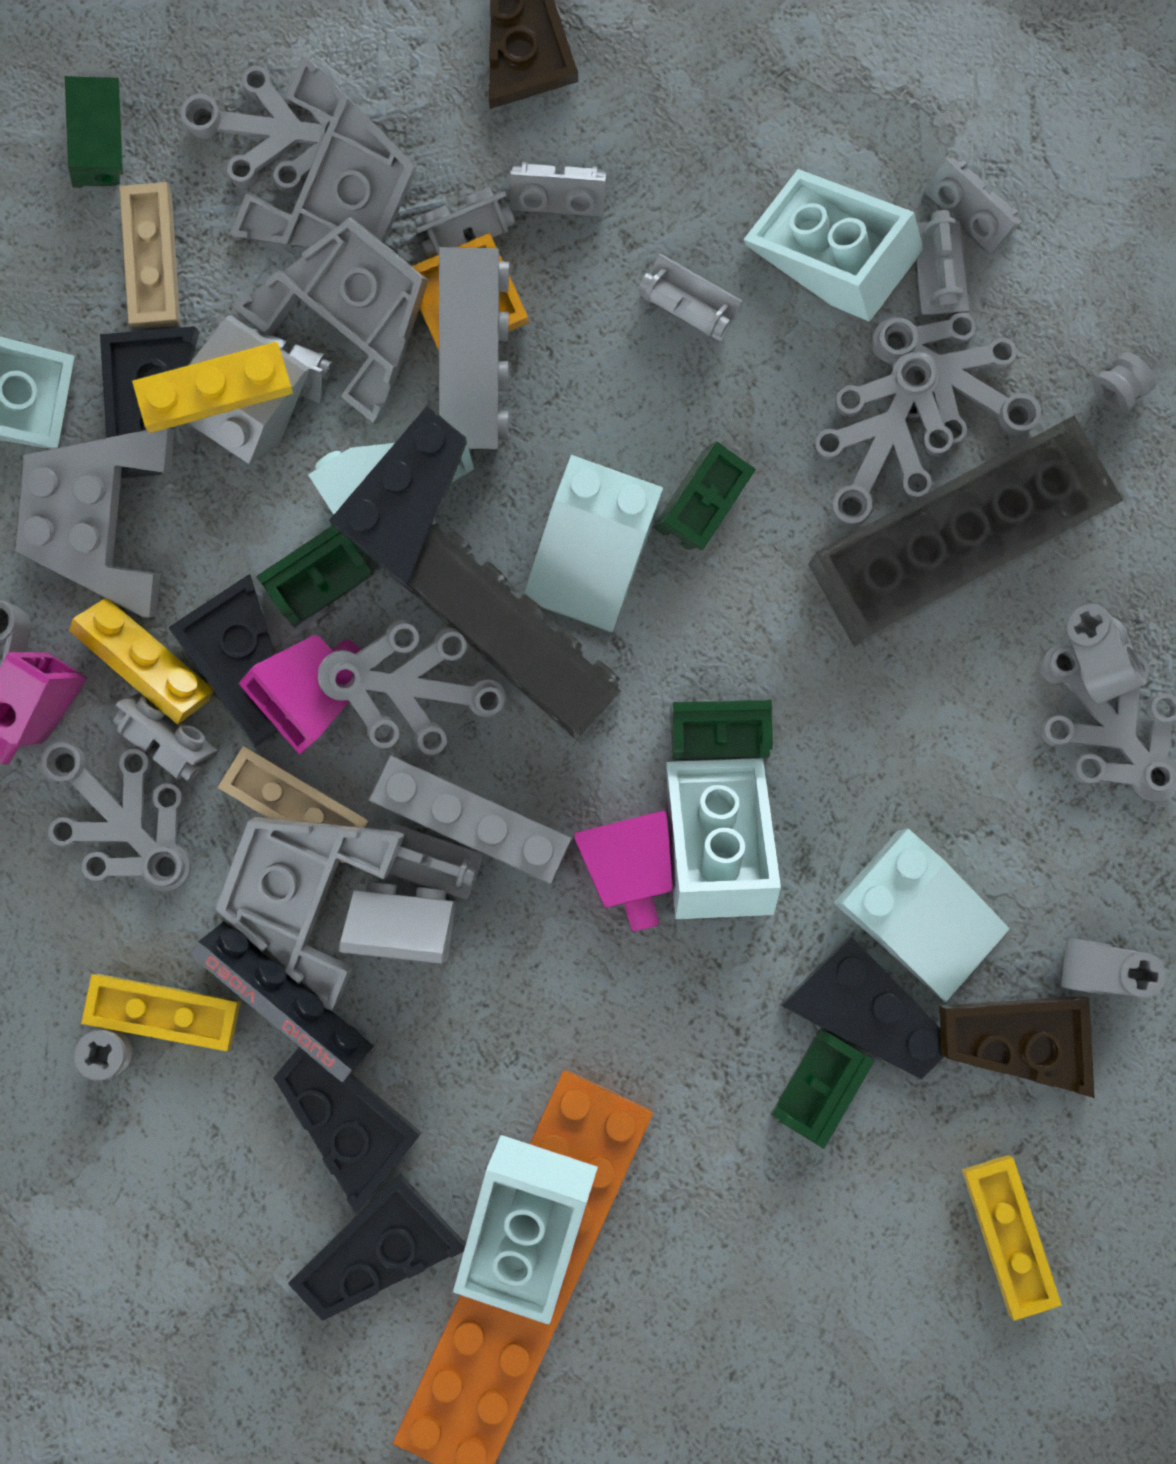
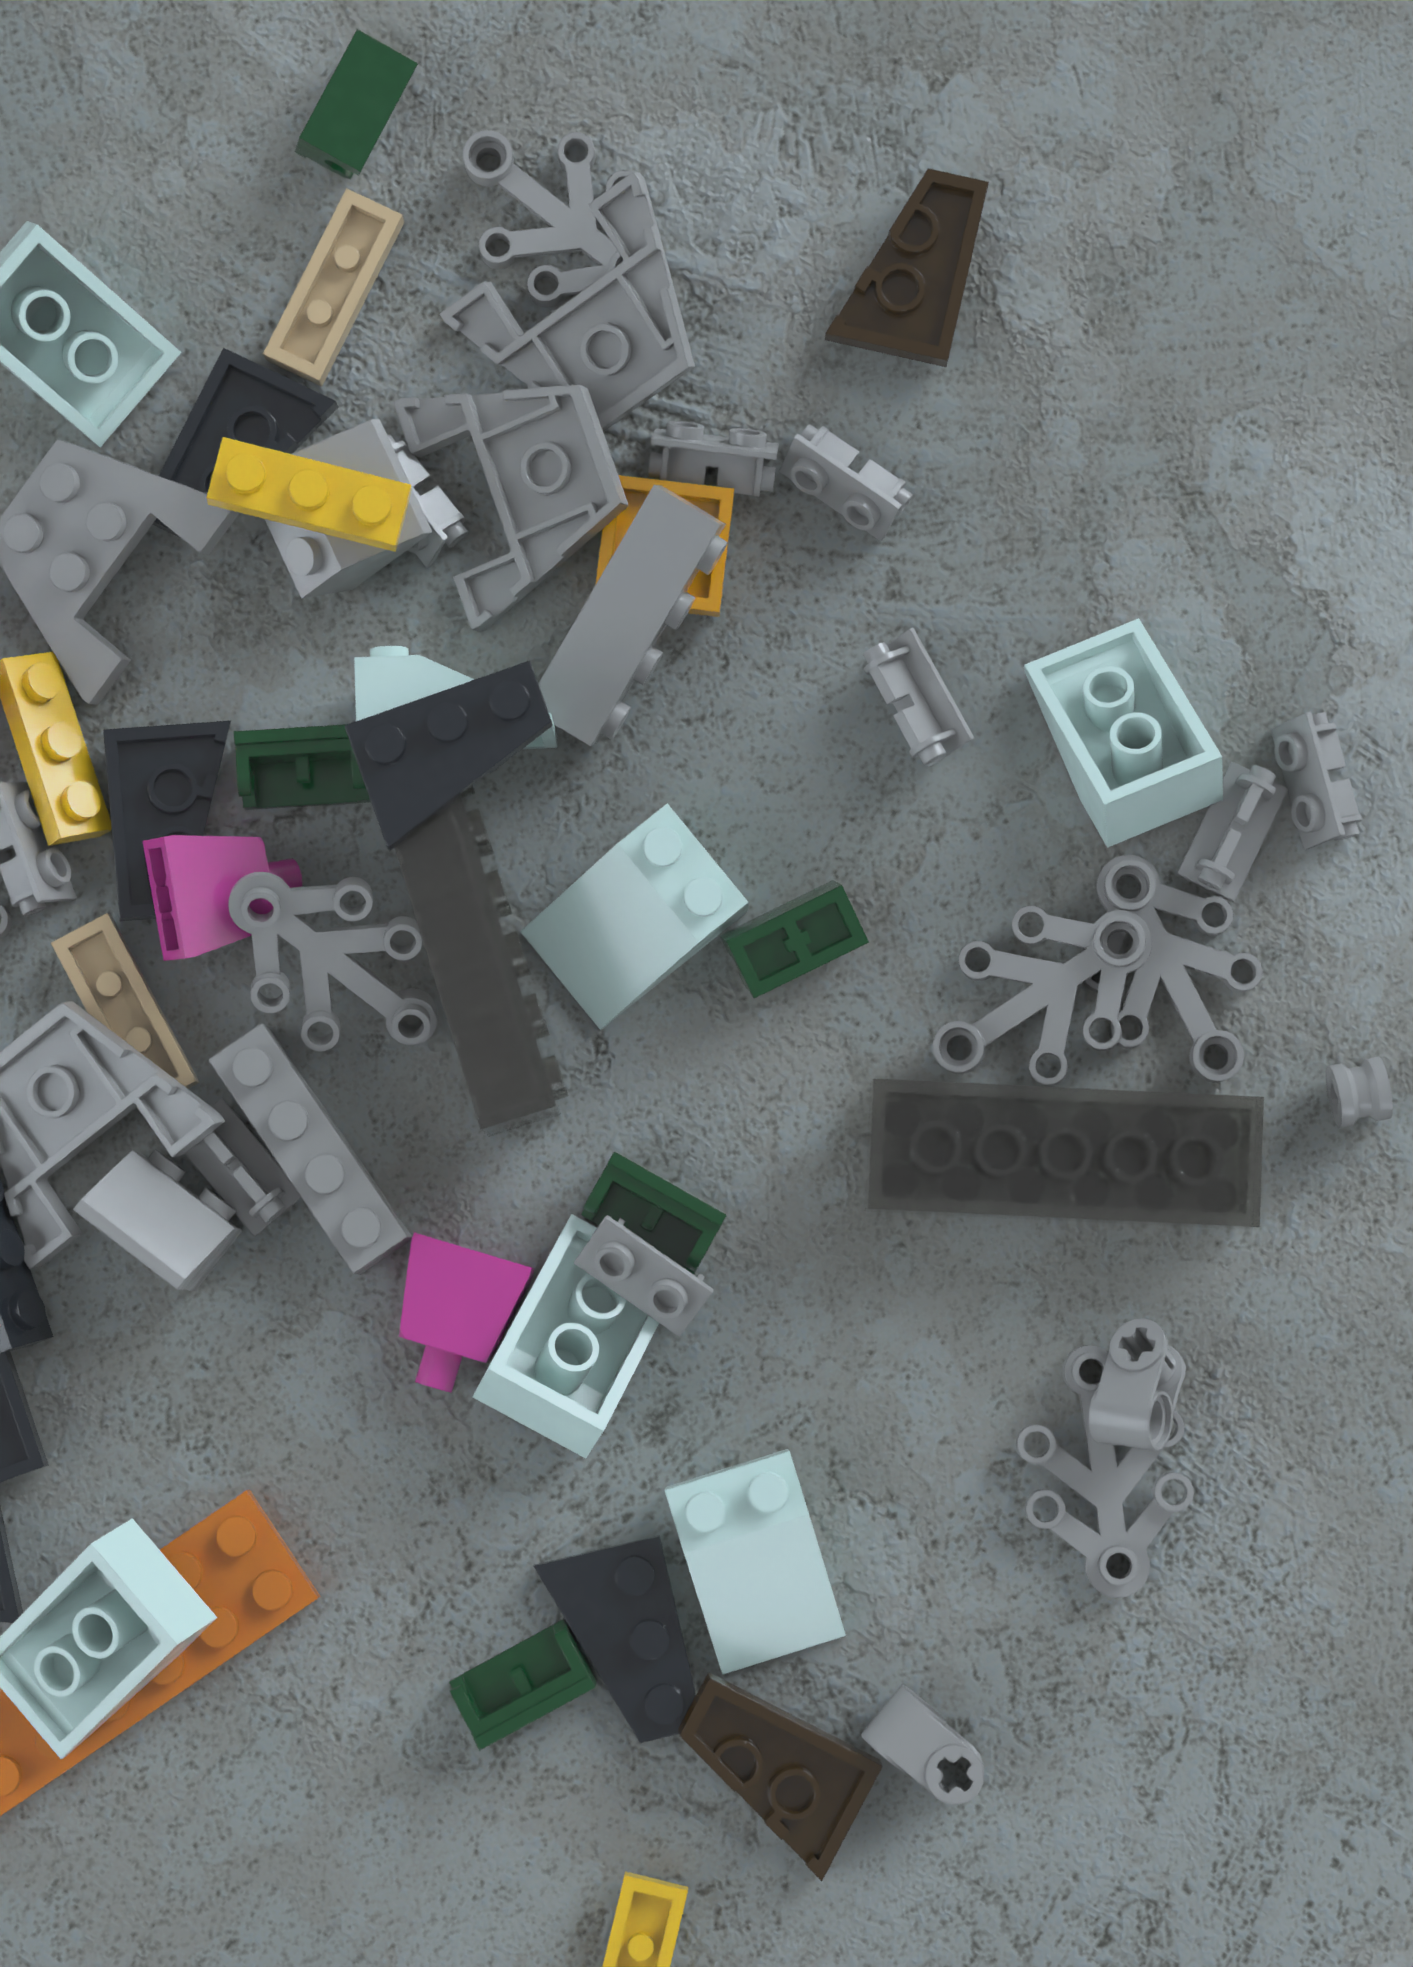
camera: 30 degrees right, 0 degrees up
(740, 771) = (643, 1275): none -> light grey hinge

